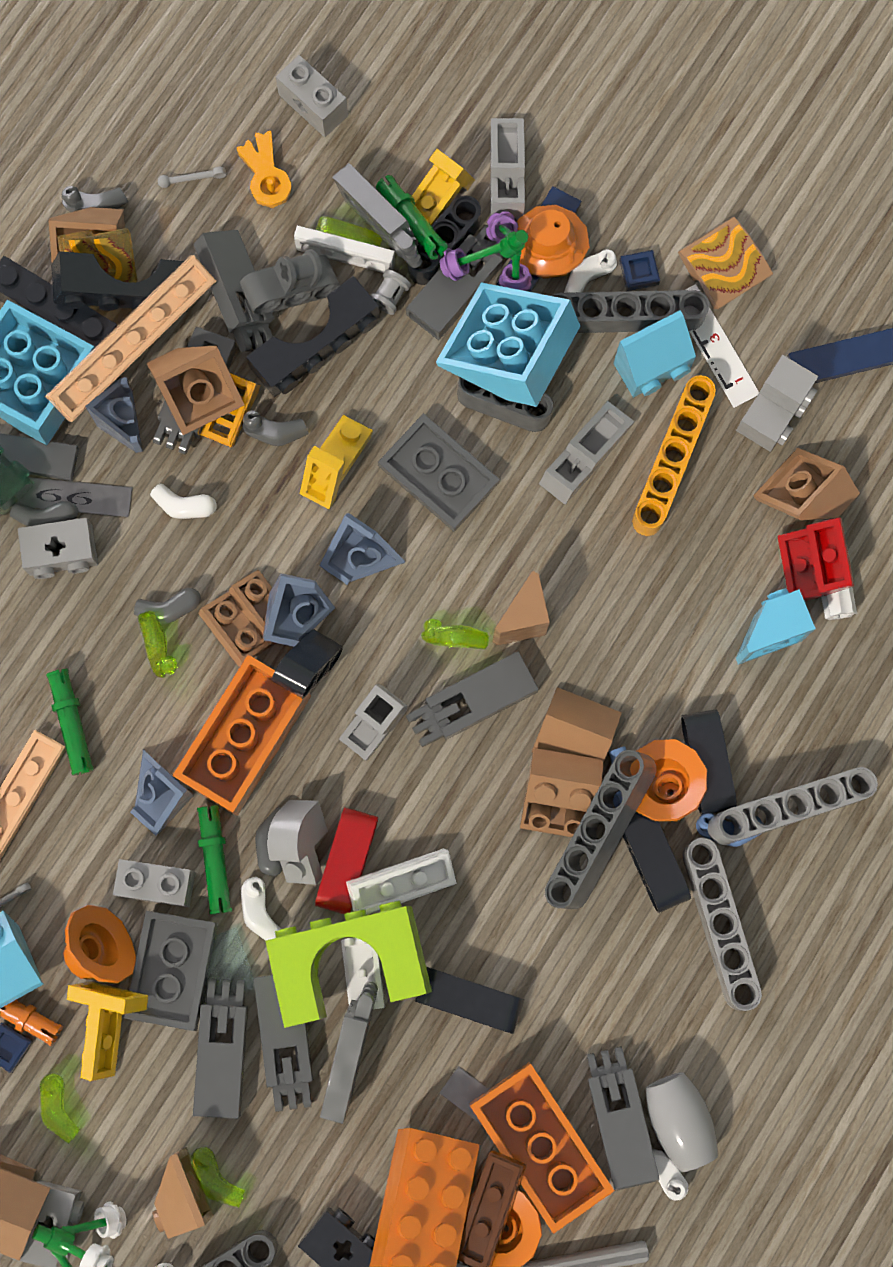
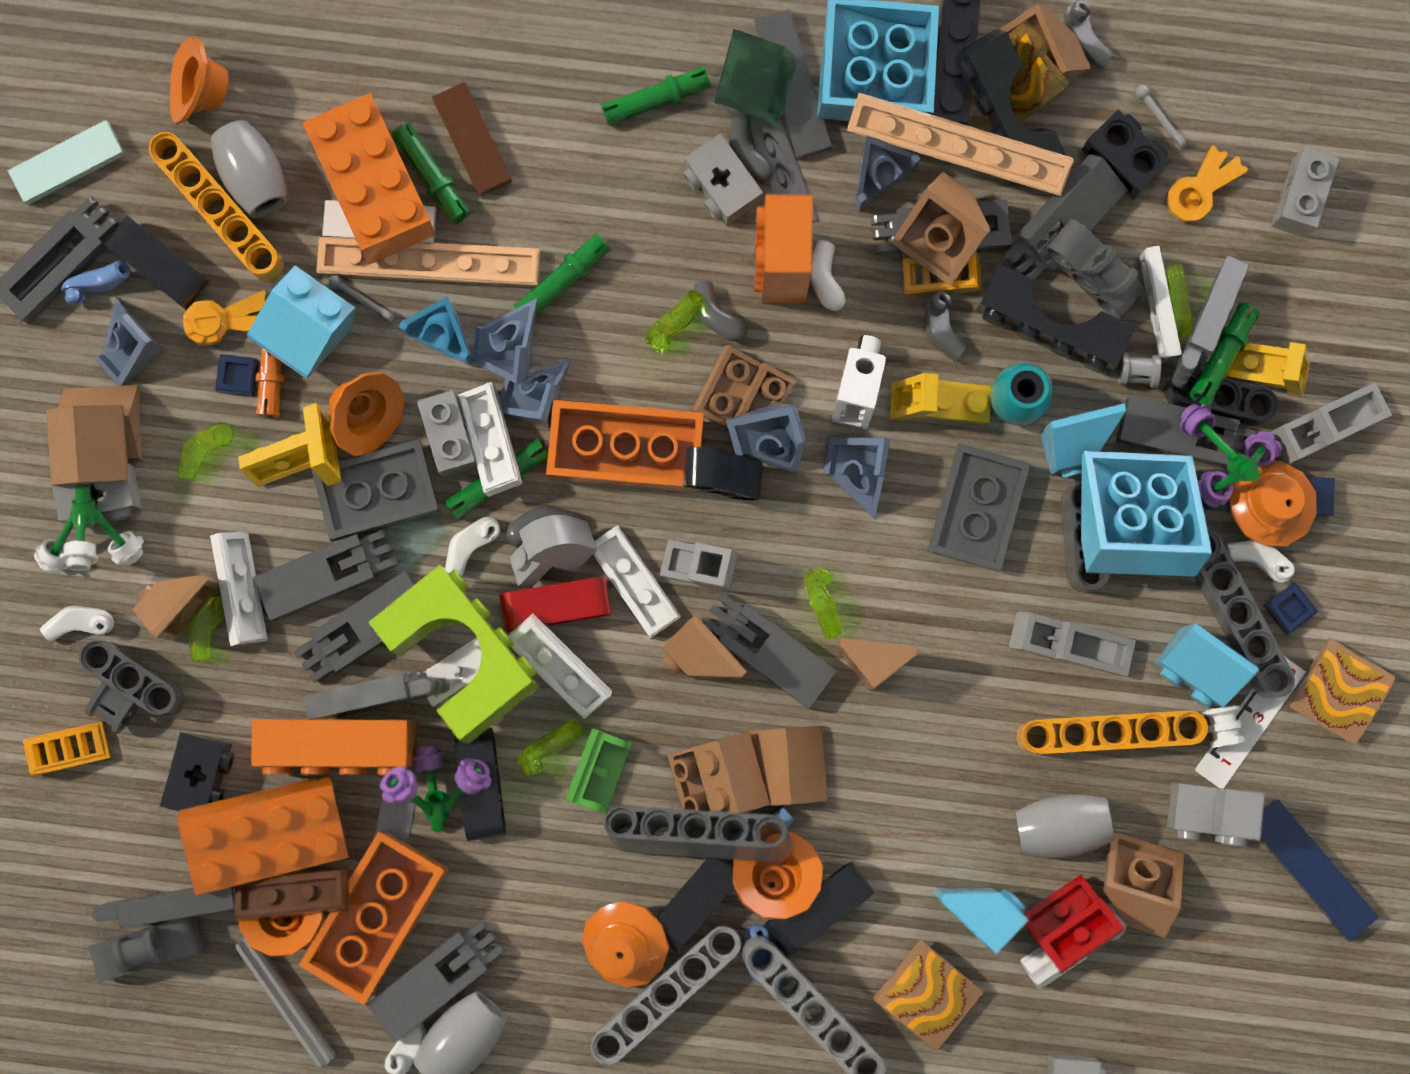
camera: 70 degrees right, 5 degrees up
(60, 847) = (439, 329): none -> dark azure slope
(101, 795) = (506, 343): none -> sand blue slope
(145, 517) = (784, 249): none -> orange brick
(177, 849) = (490, 439): none -> white tile
(195, 1133) = (238, 589): none -> white tile
(205, 206) = (1121, 158): none -> black brick
(289, 517) = (859, 384): none -> white torso
(361, 785) = (635, 582): none -> white tile
(363, 390) = (1032, 383): none -> teal piece
(373, 1112) = (332, 743): none -> orange brick
(419, 373) = (1071, 436): none -> medium azure slope
(442, 1064) = (401, 787): none -> medium lavender plant
(449, 755) = (700, 653): none -> medium nougat slope
(464, 923) = (548, 745): none -> clear neon green arm
(506, 892) = (598, 771): none -> bright green hinge
(653, 930) = (627, 930): none -> orange hat
(710, 365) = (1224, 726): none -> white bush
(733, 528) = (1064, 825): none -> light grey piece
(820, 706) = (928, 995): none -> slope

